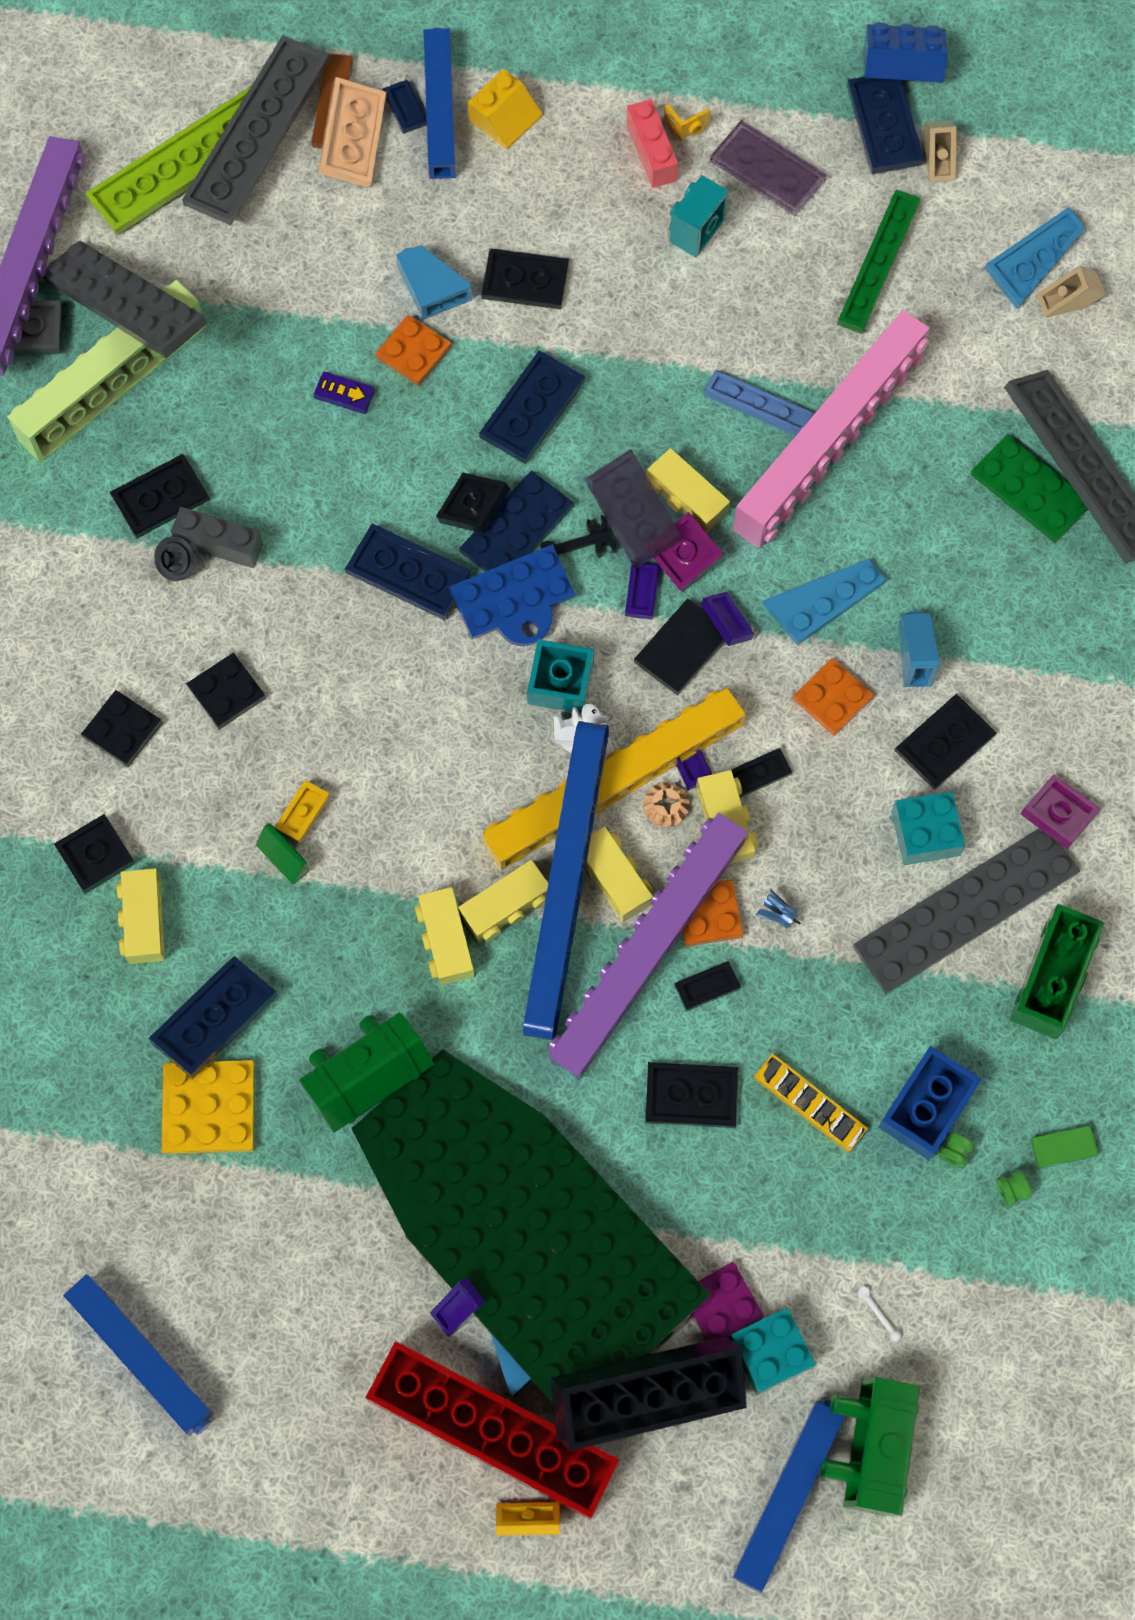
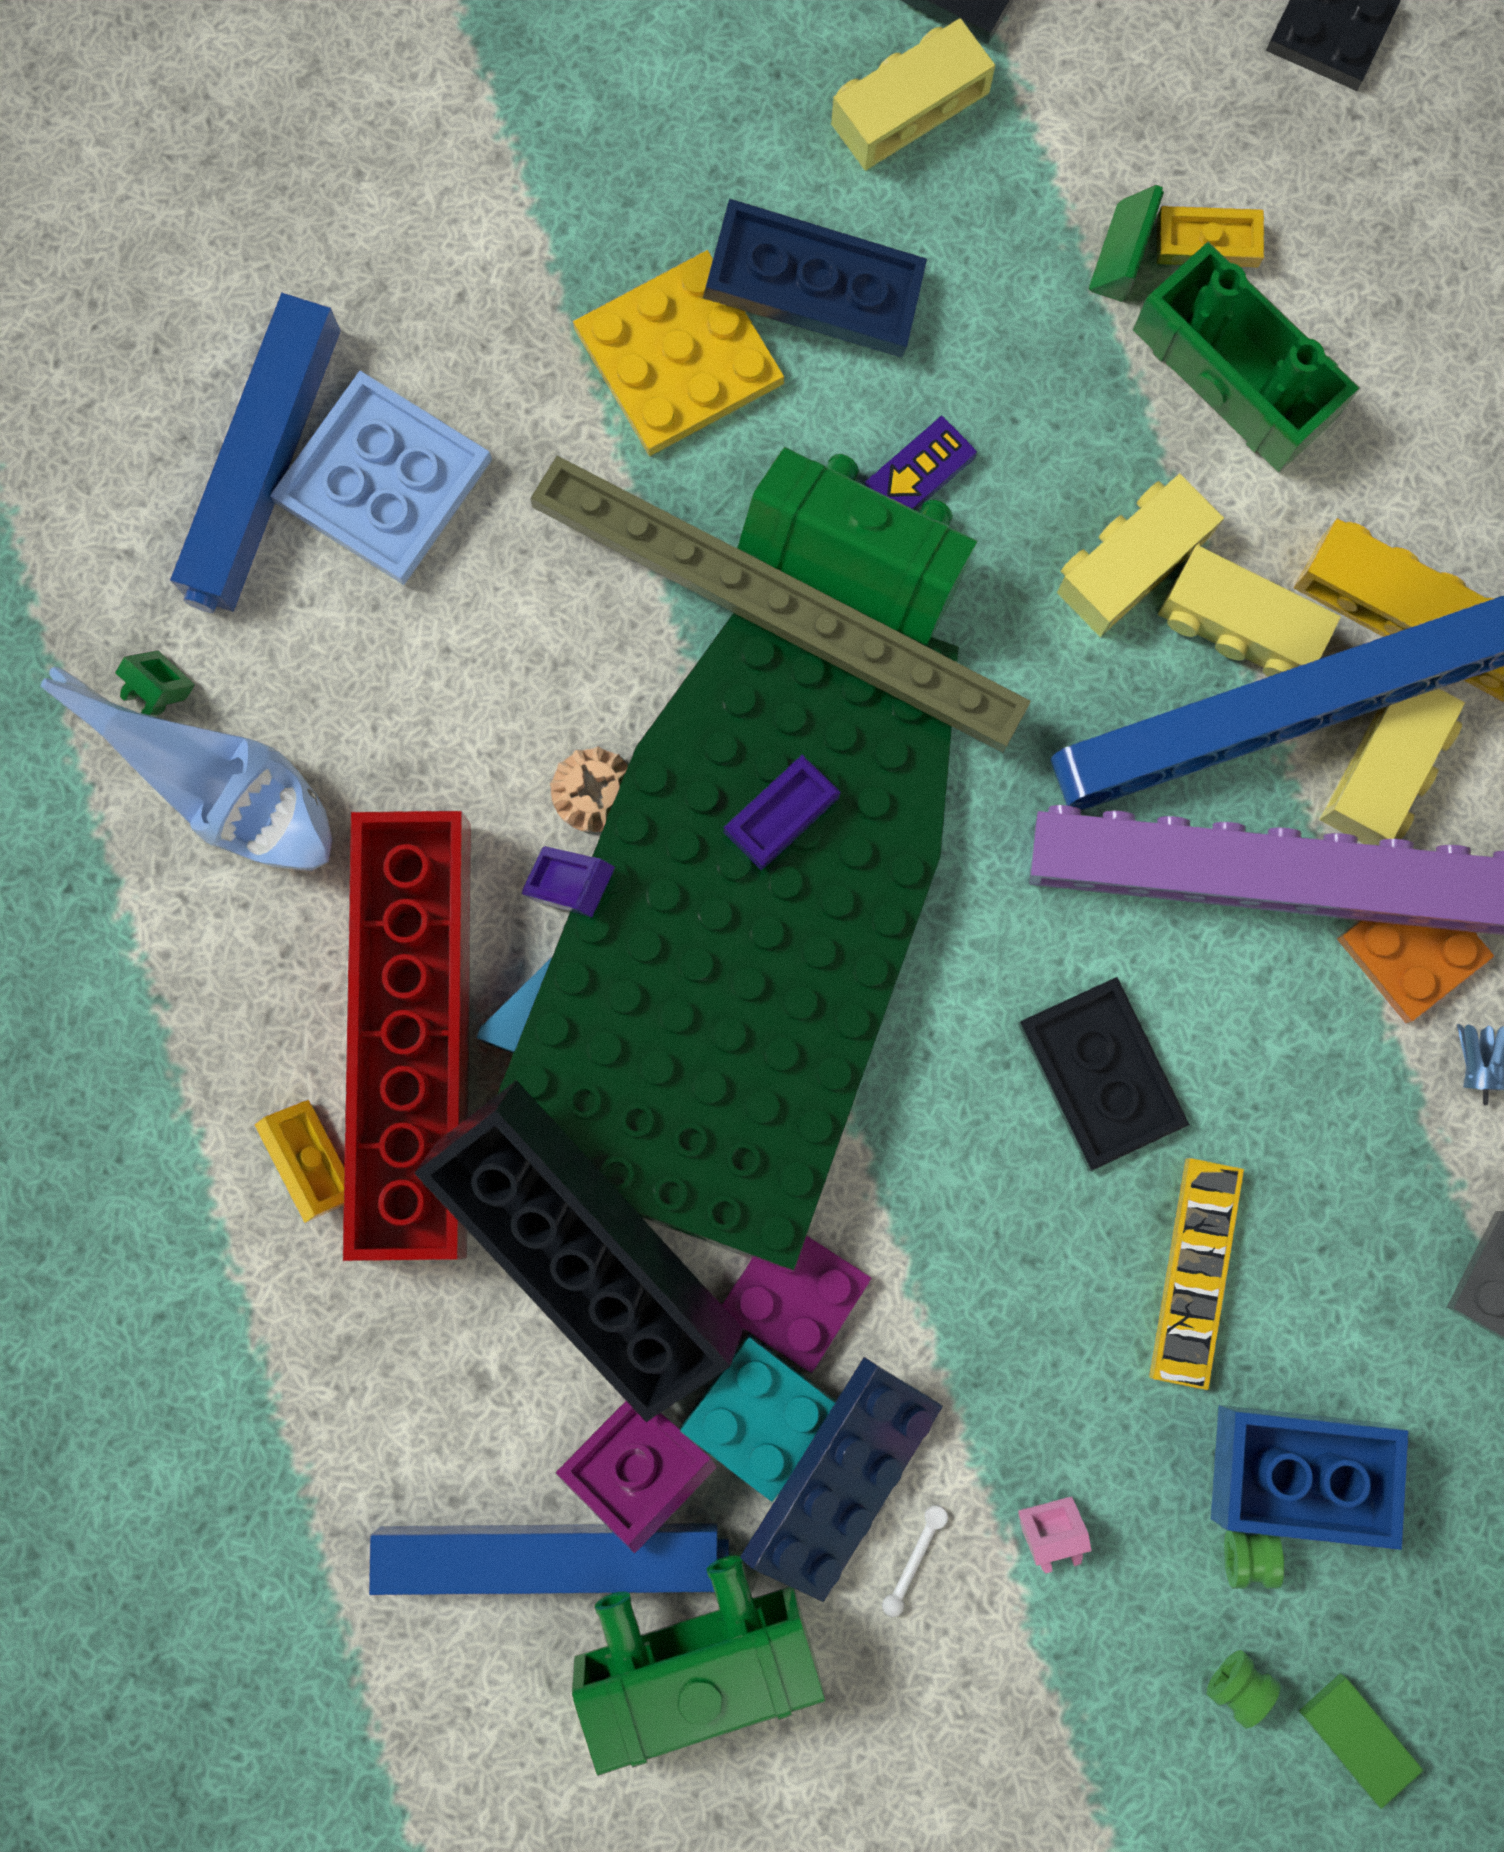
camera: 60 degrees right, 10 degrees up
(188, 1296) = (381, 477): none -> light blue plate
(231, 1472) = (153, 680): none -> green tile
(310, 1462) = (223, 784): none -> light blue piece
(339, 1017) = (924, 465): none -> dark purple tile
(372, 1127) = (780, 604): none -> olive plate
(376, 832) = (1244, 357): none -> green piece
(402, 1281) = (568, 780): none -> light nougat gear
(481, 1180) = (781, 812): none -> dark purple tile
(707, 986) = (1294, 1007): black tile -> none
(768, 1426) = (635, 1473): none -> magenta plate
(823, 1326) = (841, 1481): none -> dark blue plate
(898, 1237) = (1055, 1532): none -> bright pink tile

